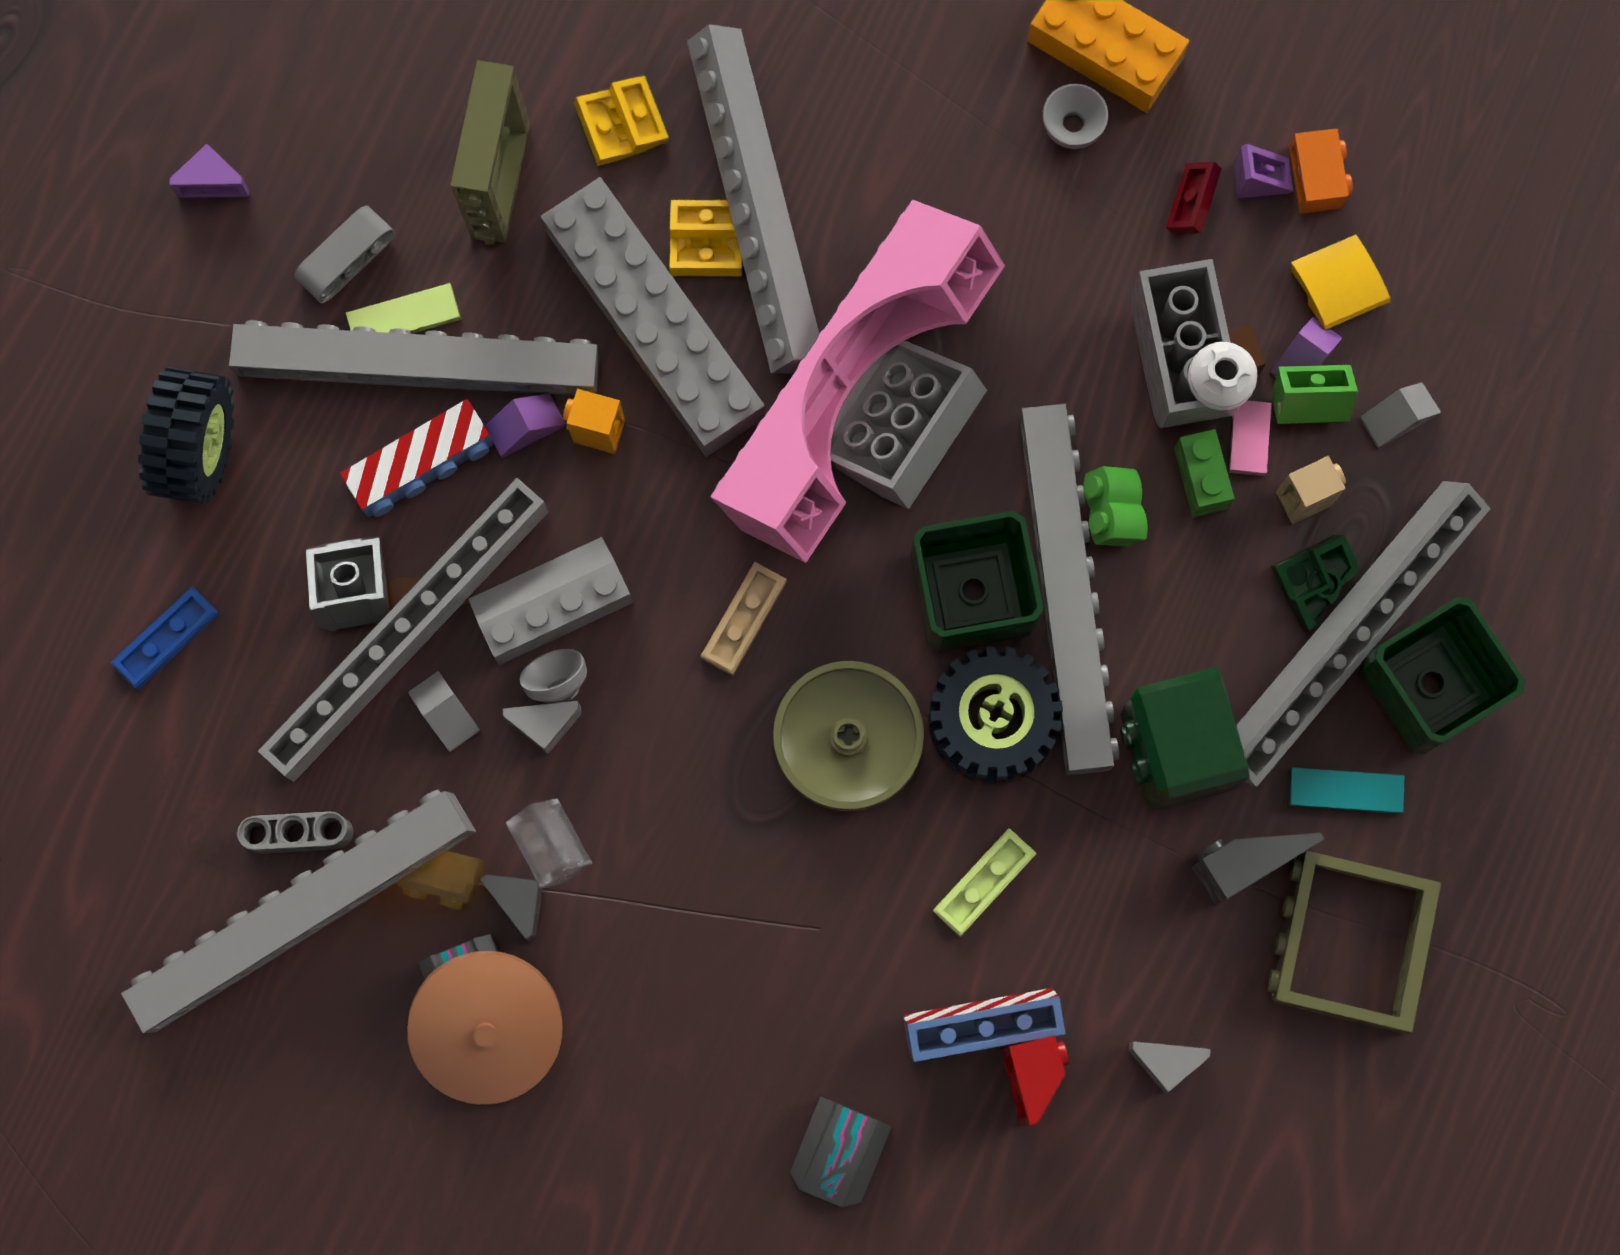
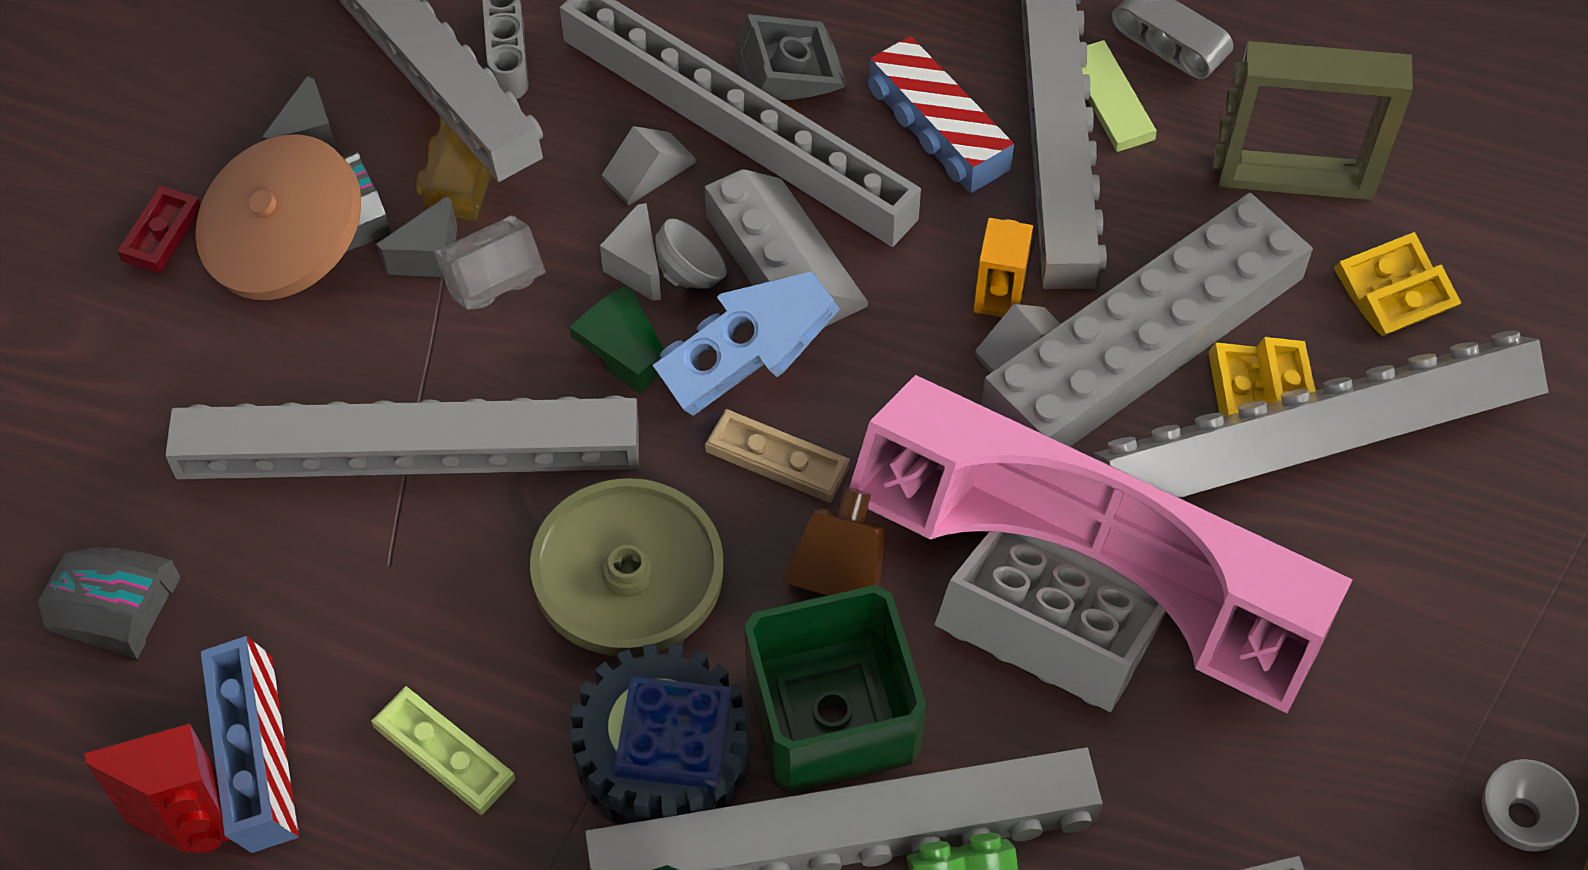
camera: 85 degrees right, 20 degrees down
(377, 1011) = (303, 116): none -> dark grey slope
(478, 1136) = (159, 229): none -> dark red plate
(524, 423) = (995, 200): medium lavender slope -> none
(624, 736) = (622, 337): none -> dark green slope
(645, 595) = (785, 321): none -> light blue brick
(654, 417) = (1014, 333): none -> light grey slope
(712, 916) = (403, 438): none -> light grey brick
(849, 573) = (839, 548): none -> reddish brown torso
(1007, 699) = (673, 732): none -> clear blue tile

